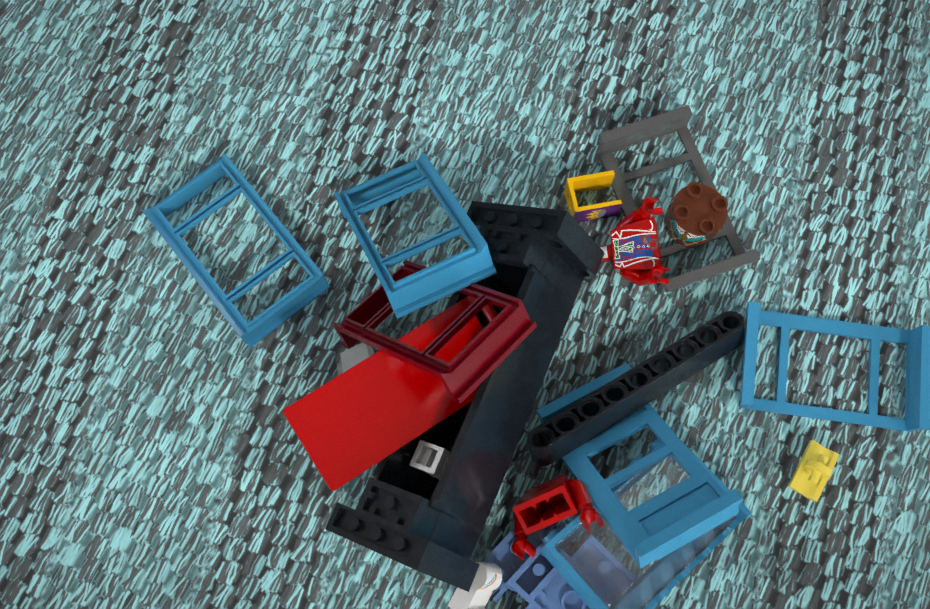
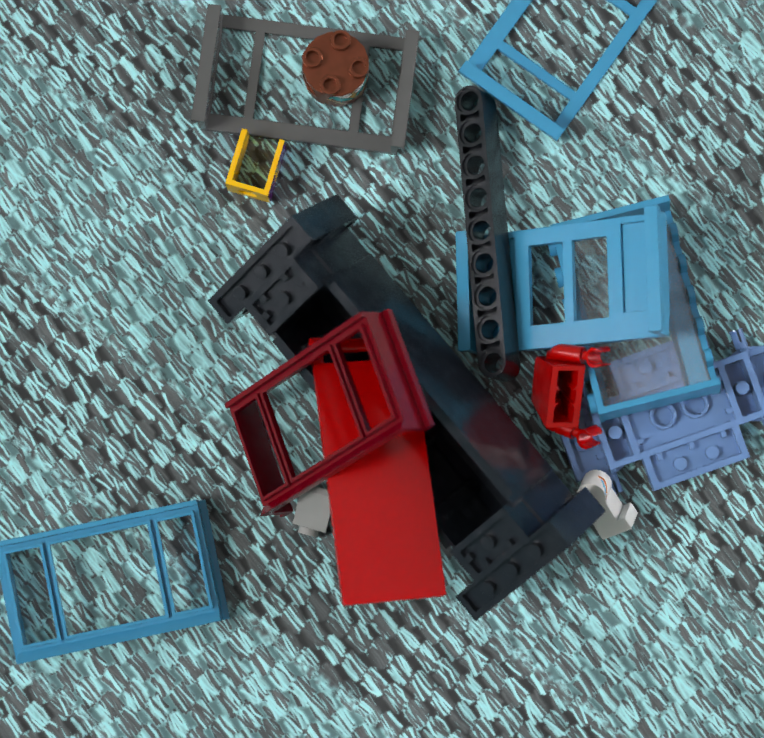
camera: 65 degrees left, 10 degrees up
(430, 459) = (460, 481): white leg -> none
(438, 279) = (287, 387): dark azure piece -> none
(636, 246) = (338, 151): red torso -> none
(813, 471) = (657, 107): light yellow hips -> none

